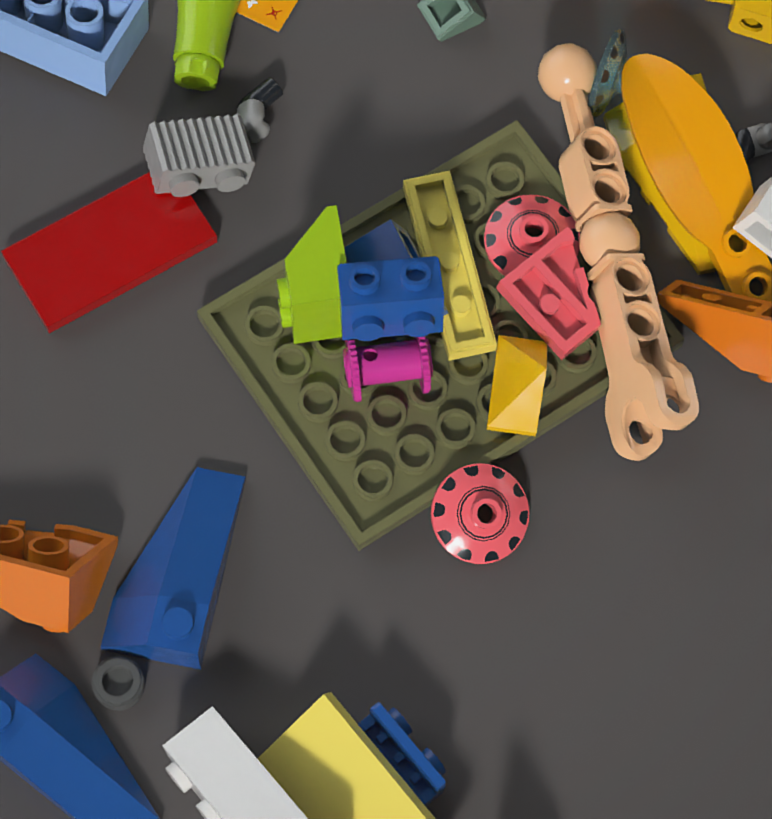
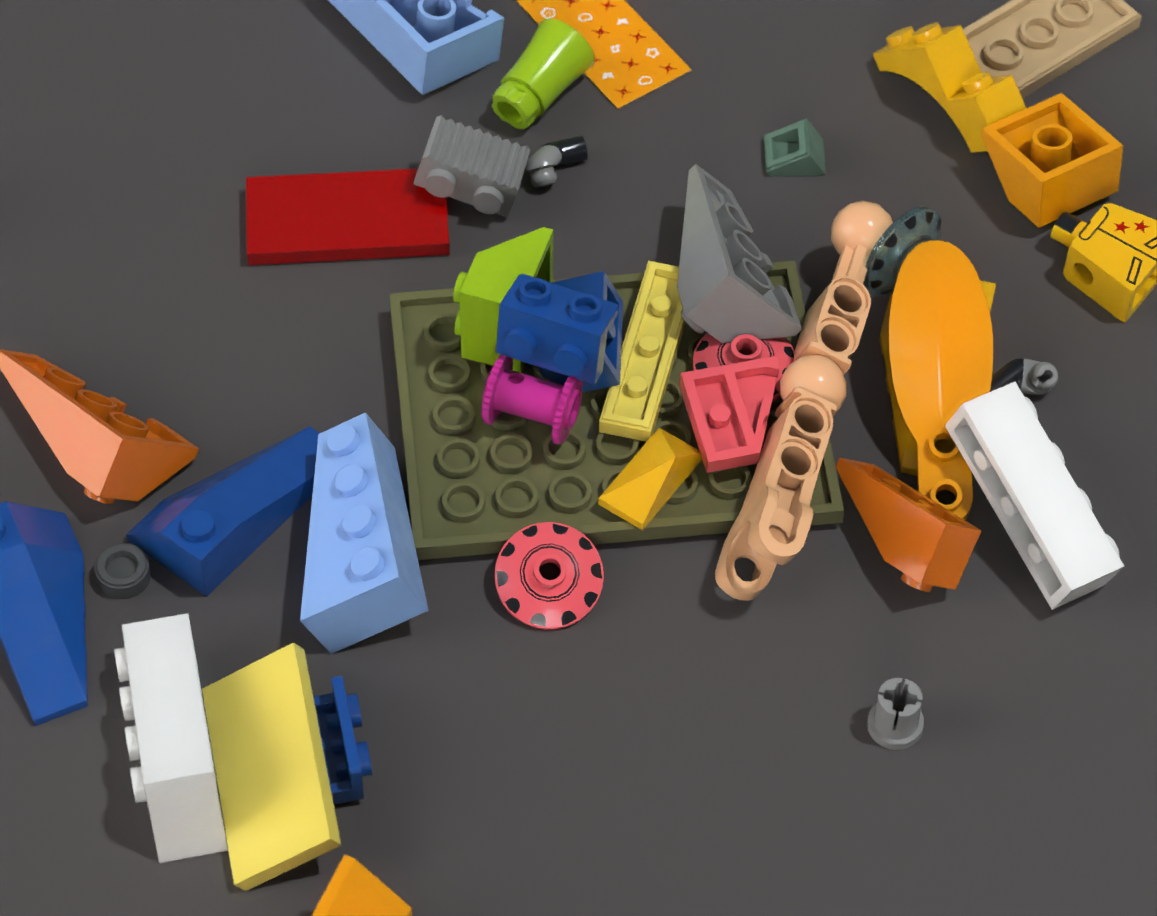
camera: 30 degrees right, 15 degrees down
(316, 565) = (360, 540): none -> light blue wedge
(476, 170) = (724, 272): none -> light grey wedge

